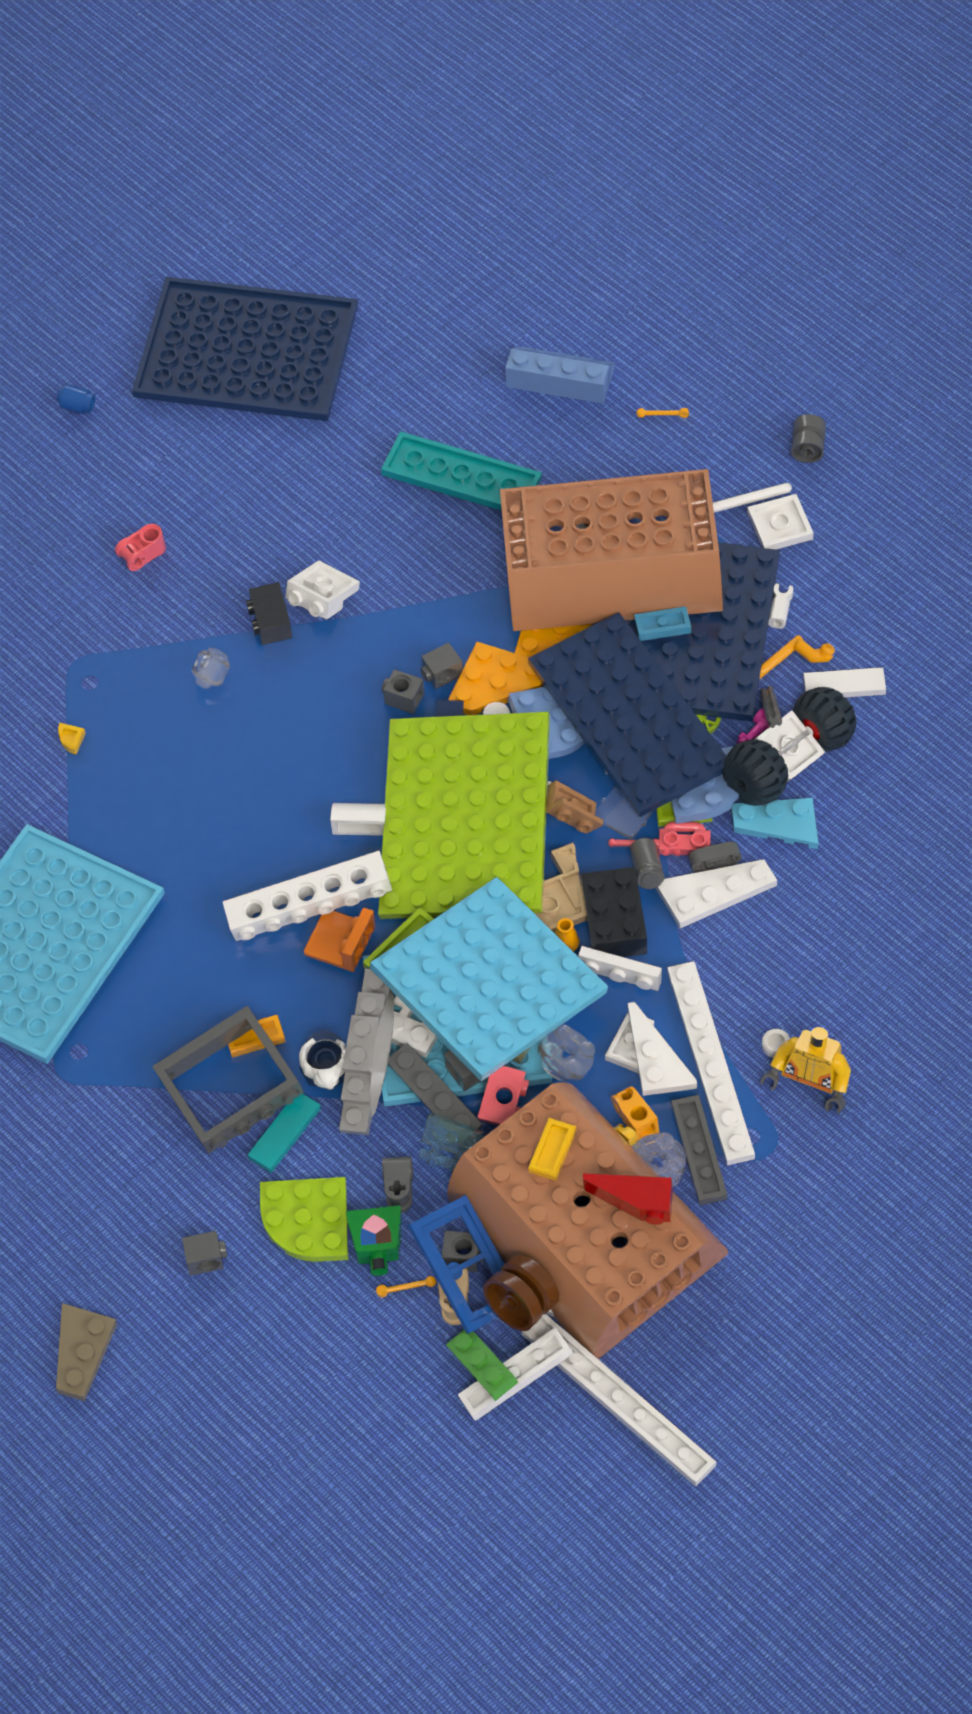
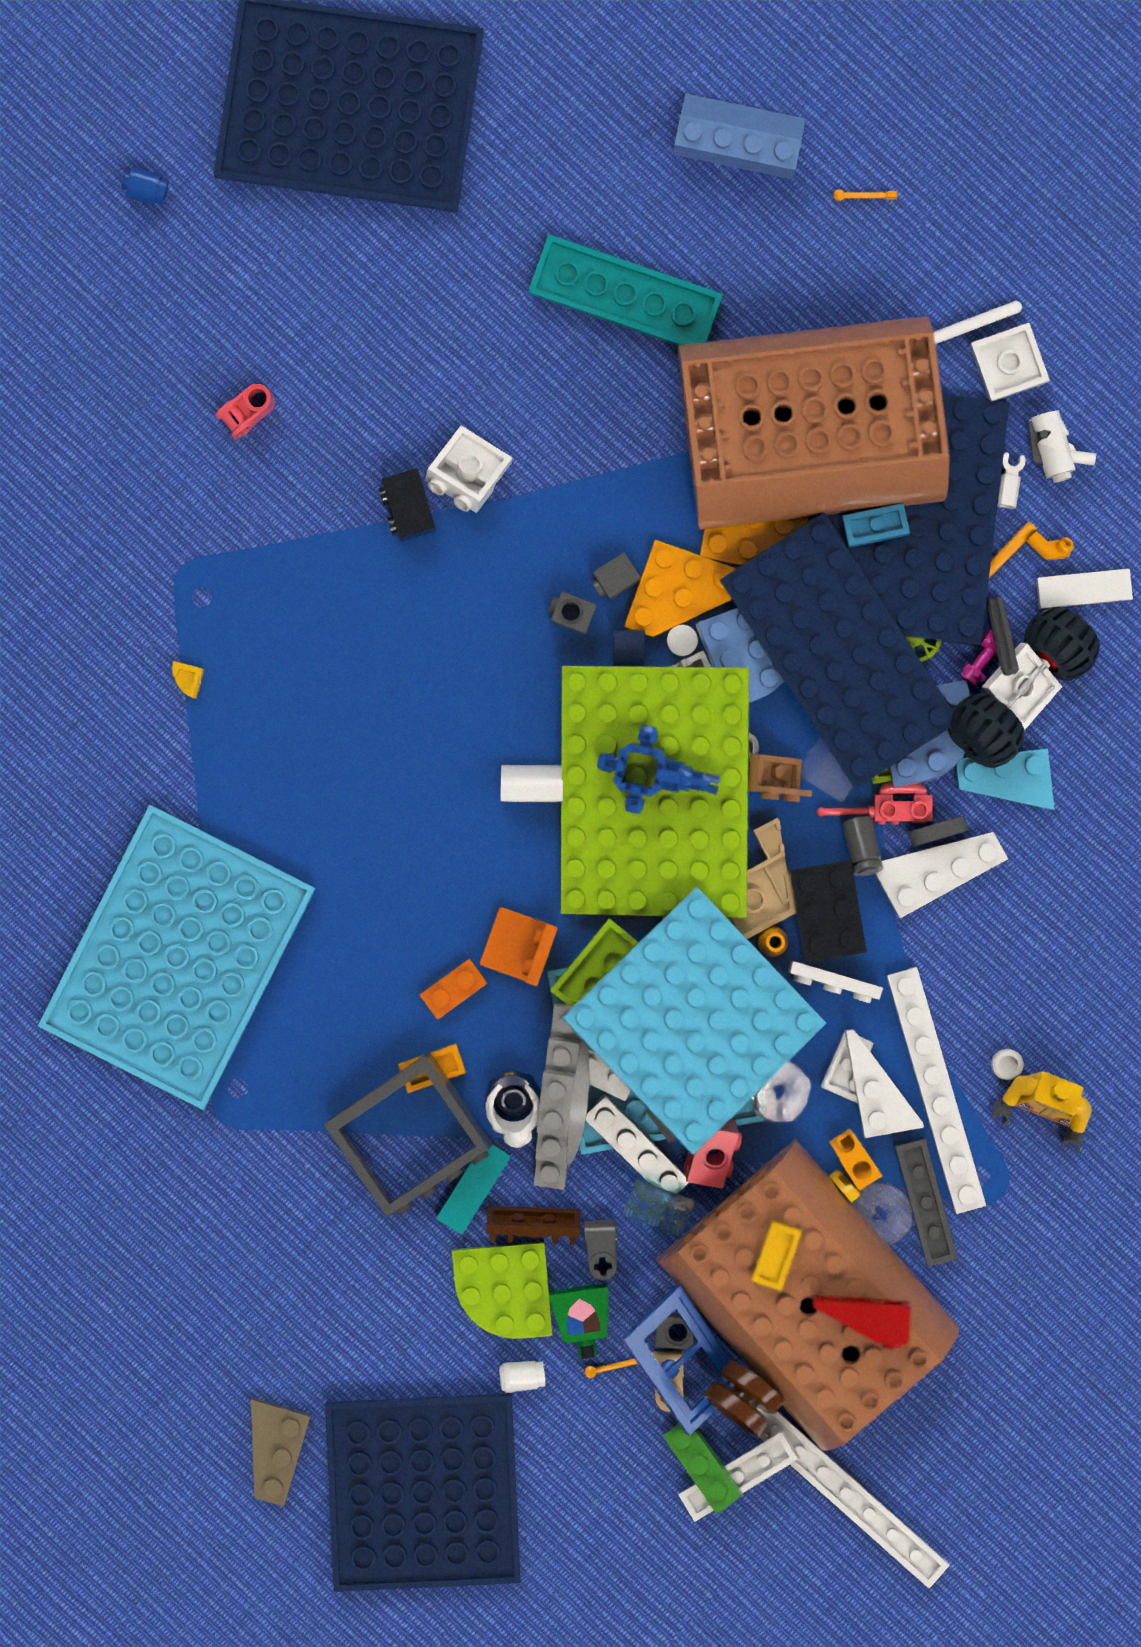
camera: 10 degrees left, 30 degrees up
(204, 1253) = (398, 1339): dark grey brick -> none
(210, 668) = (345, 587): clear head -> none
(215, 1388) = (422, 1492): none -> dark blue plate
(279, 973) = (453, 989): none -> orange plate
(293, 891) = (403, 918): white brick -> none
(316, 1288) = (521, 1376): none -> white piece
(336, 1160) = (533, 1222): none -> reddish brown plate
(475, 787) = (670, 774): none -> blue piece
(808, 438) = (1043, 243): dark grey wheel -> none
(815, 579) = (1052, 449): none -> white piece

